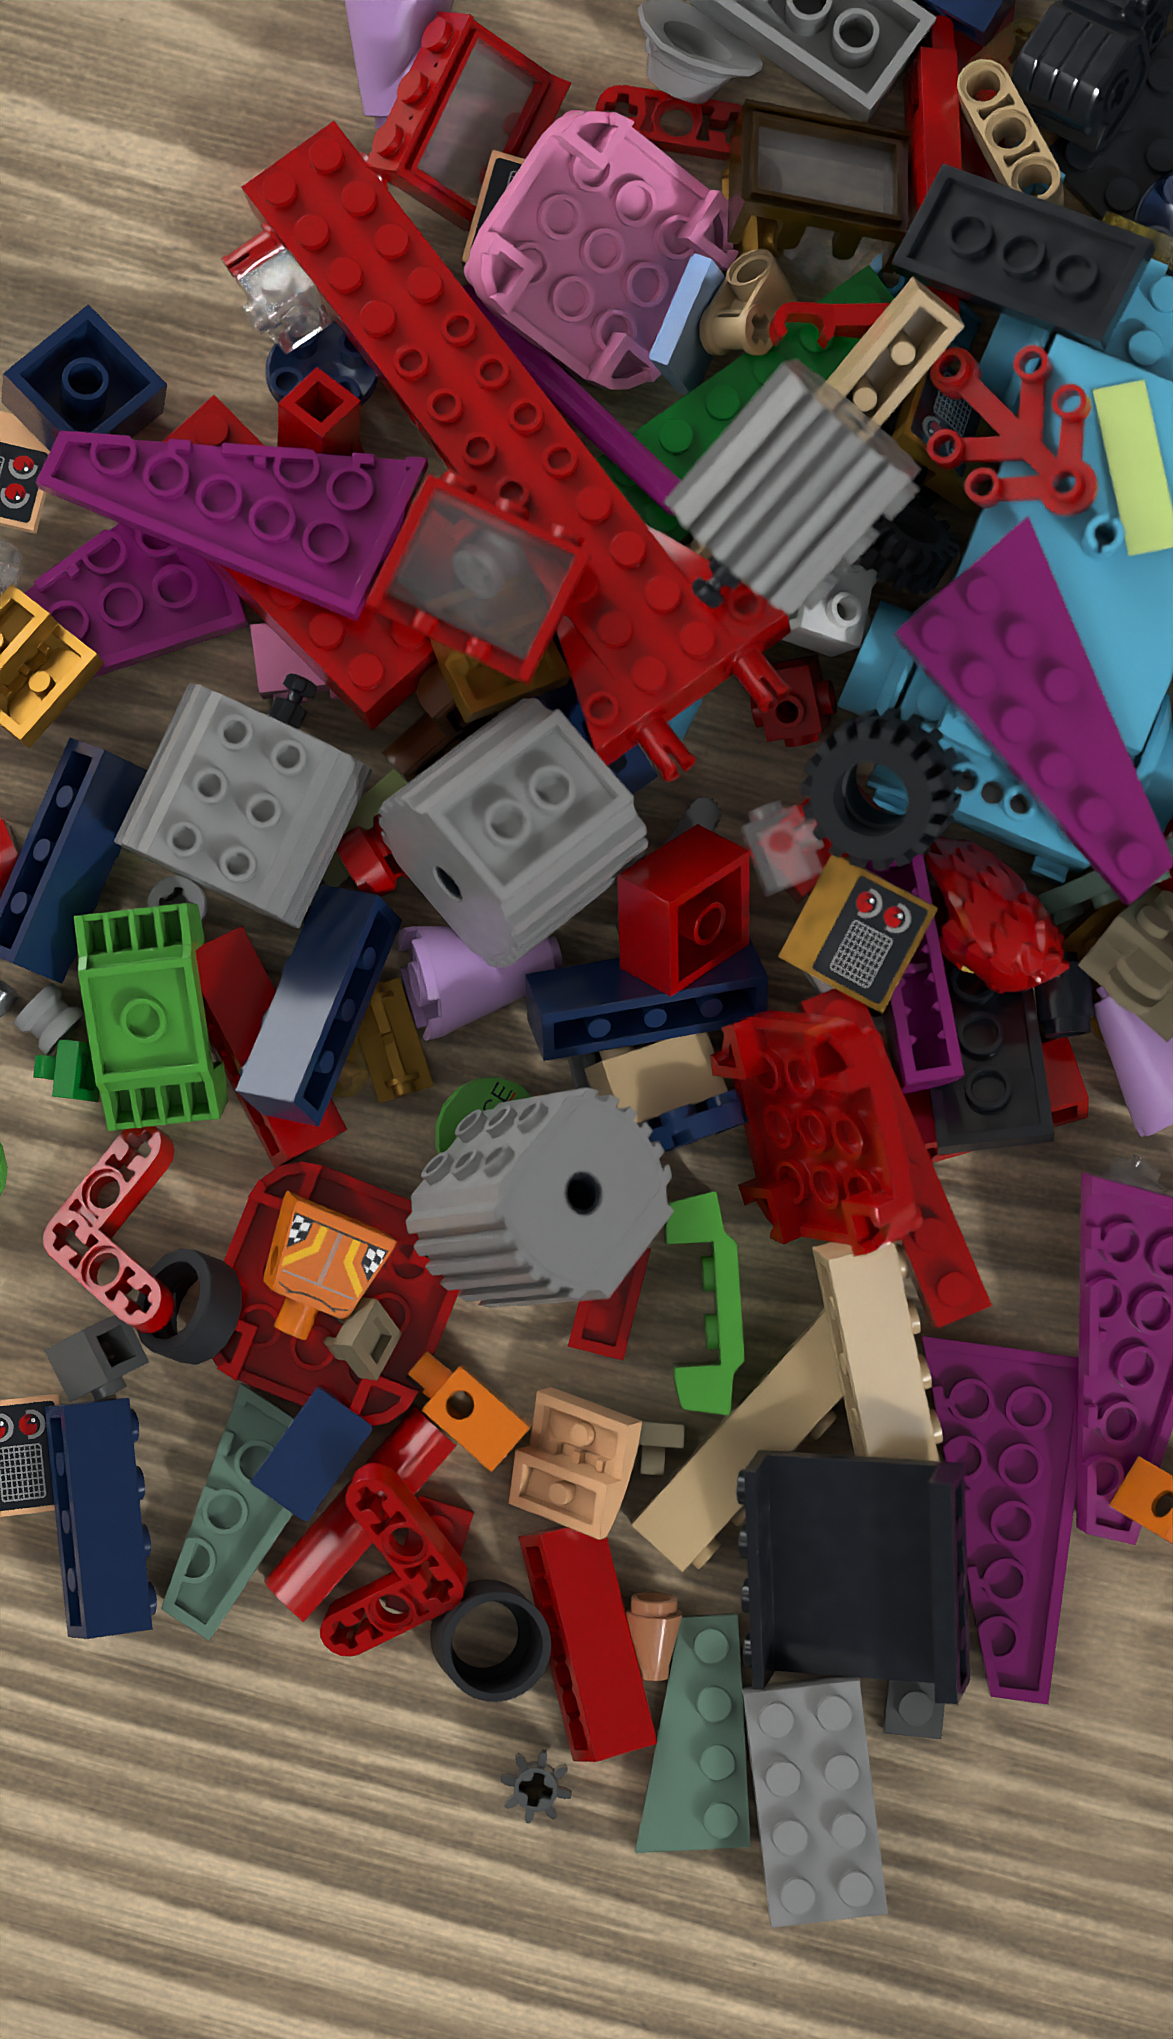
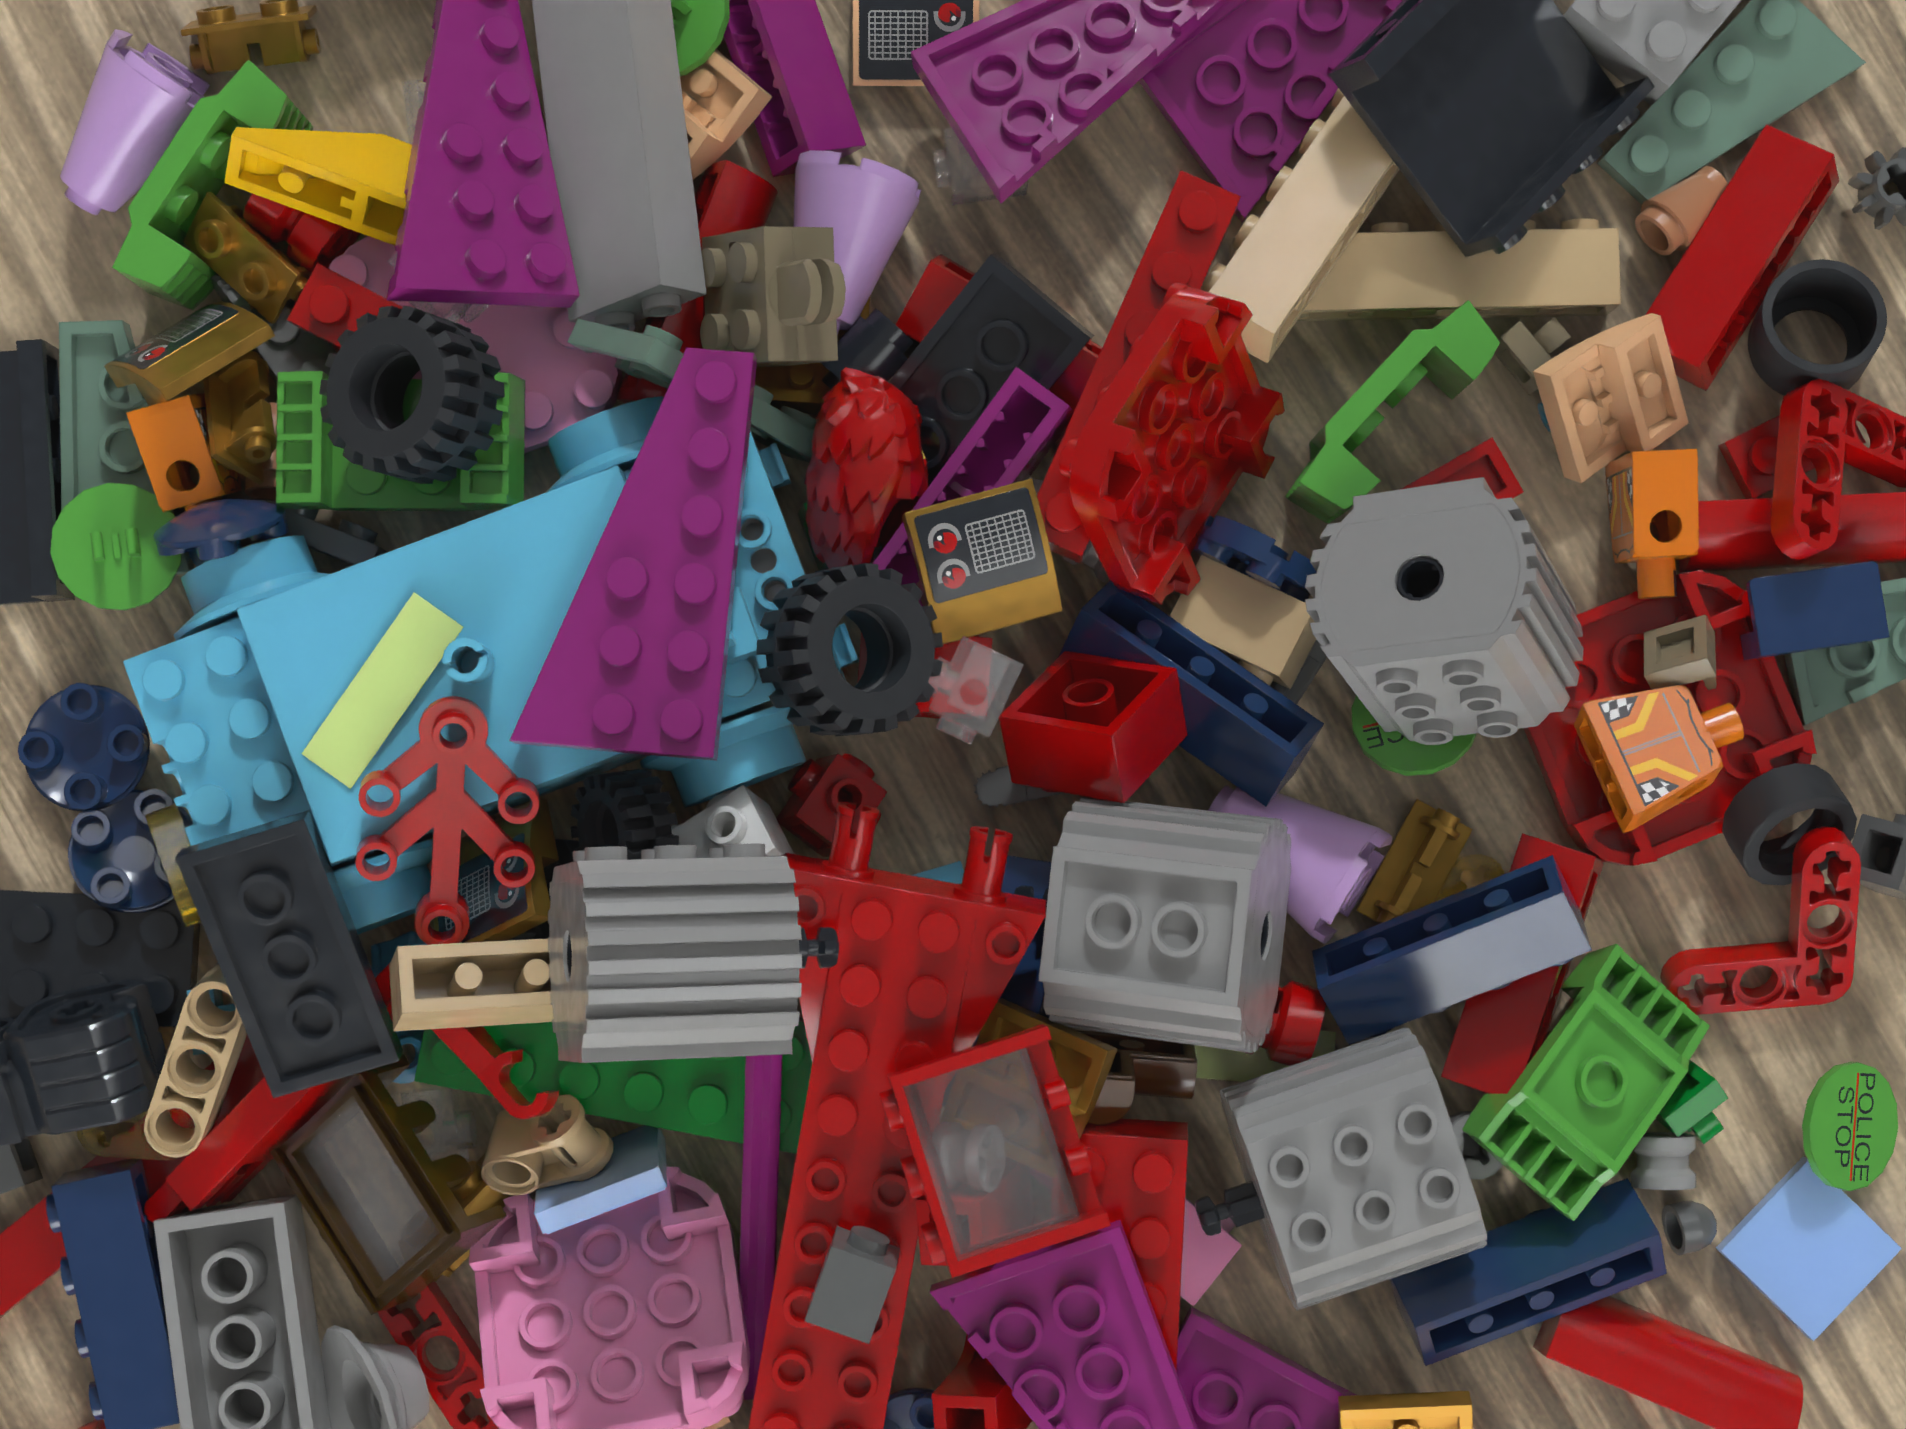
camera: 140 degrees left, 0 degrees up
(479, 414) = (853, 1282): none -> dark grey brick

